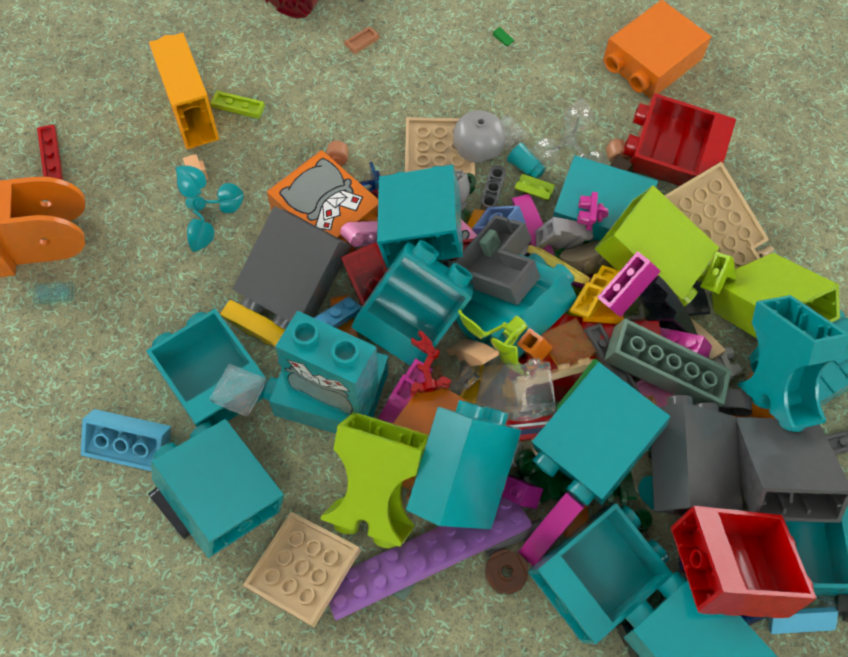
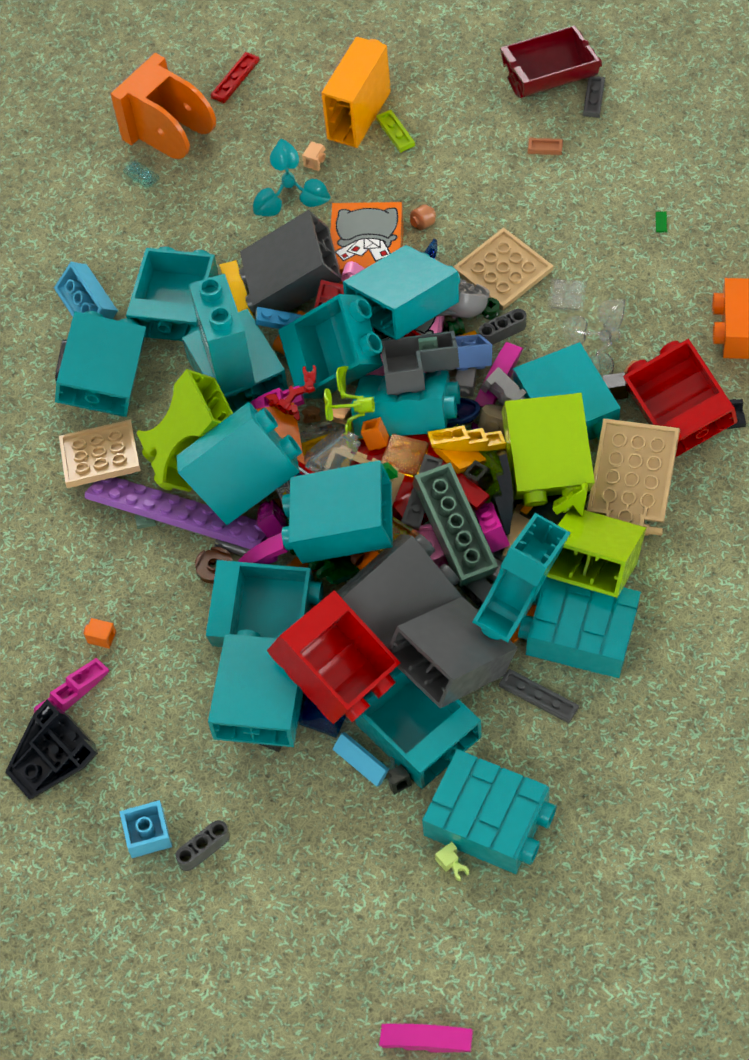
camera: 55 degrees right, 5 degrees down
(238, 390) = (170, 314): clear plate -> none
(479, 136) = (535, 279): light grey cylinder -> none
(526, 161) = (553, 324): teal plant -> none
(535, 187) = (533, 345): lime bracket -> none
(553, 261) = (470, 405): light yellow tile -> none
(593, 212) = (535, 388): dark pink hips -> none
(629, 284) = (481, 444): dark pink brick -> none

